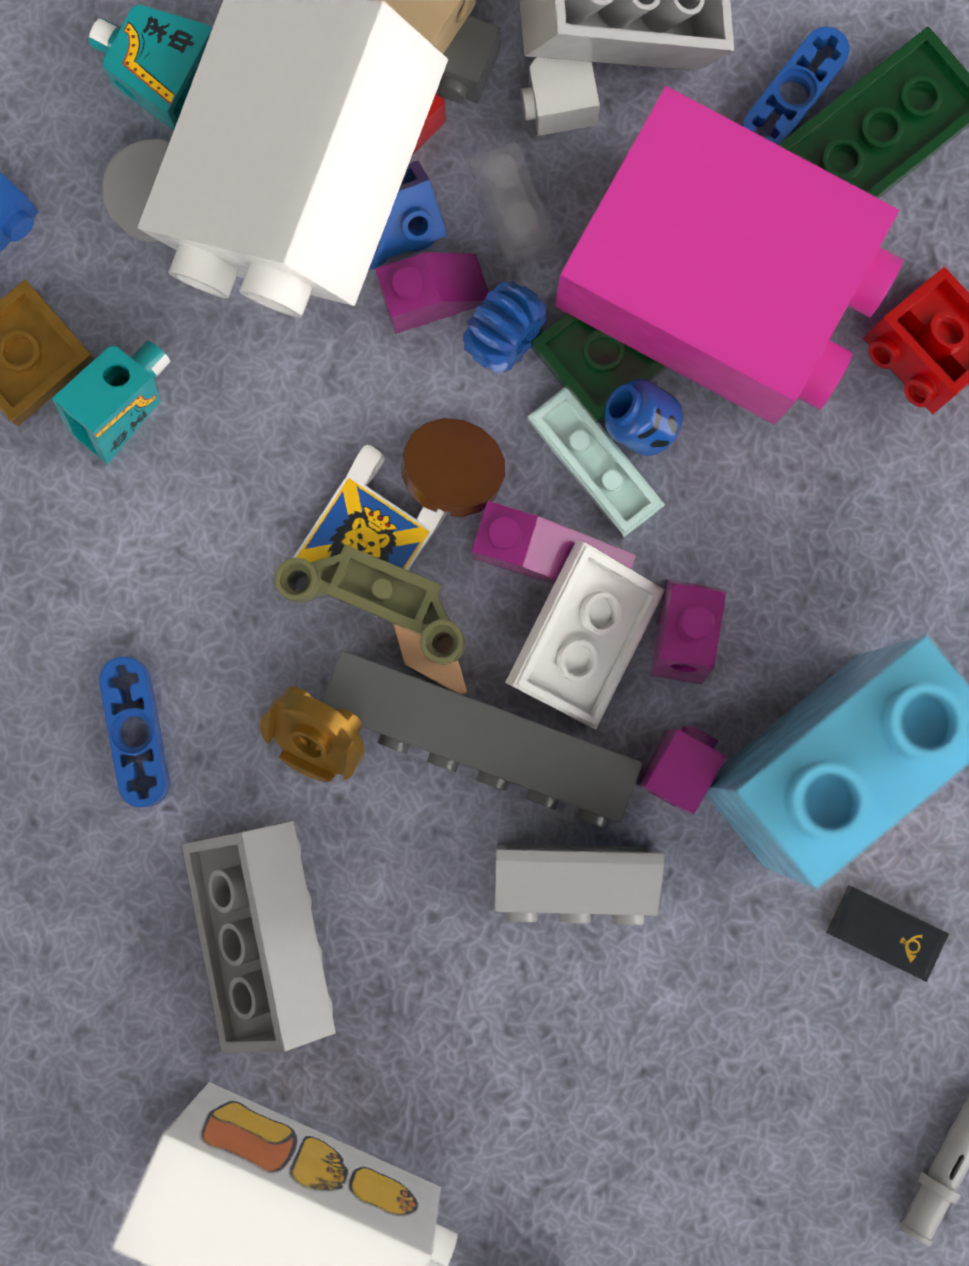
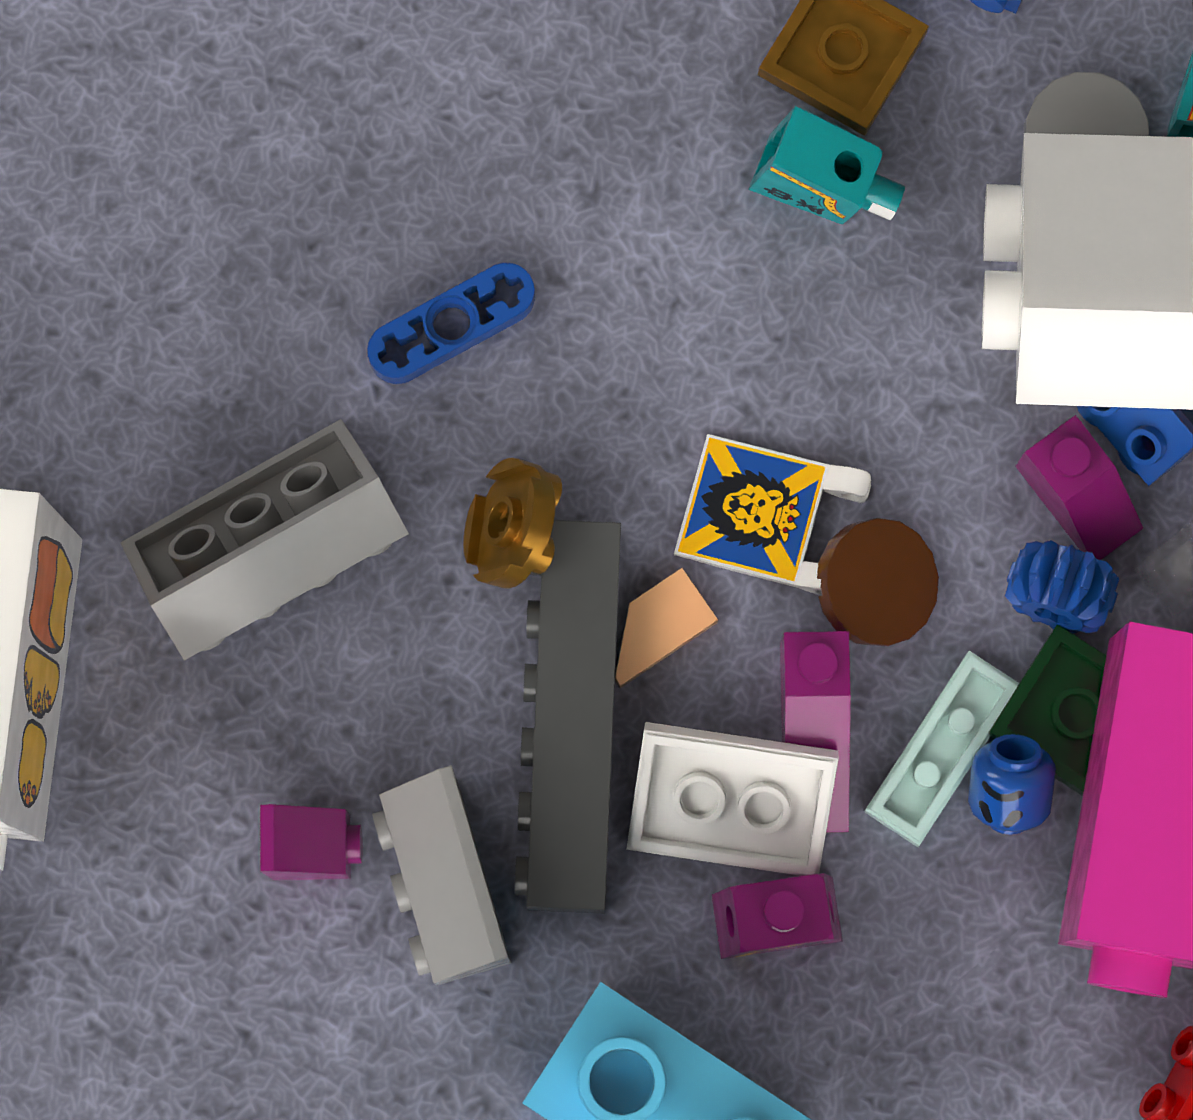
camera: 65 degrees right, 5 degrees down
(378, 590) = (704, 543): olive plate -> none
(515, 981) = (308, 842): none -> magenta slope
(682, 768) = (613, 954): magenta brick -> none

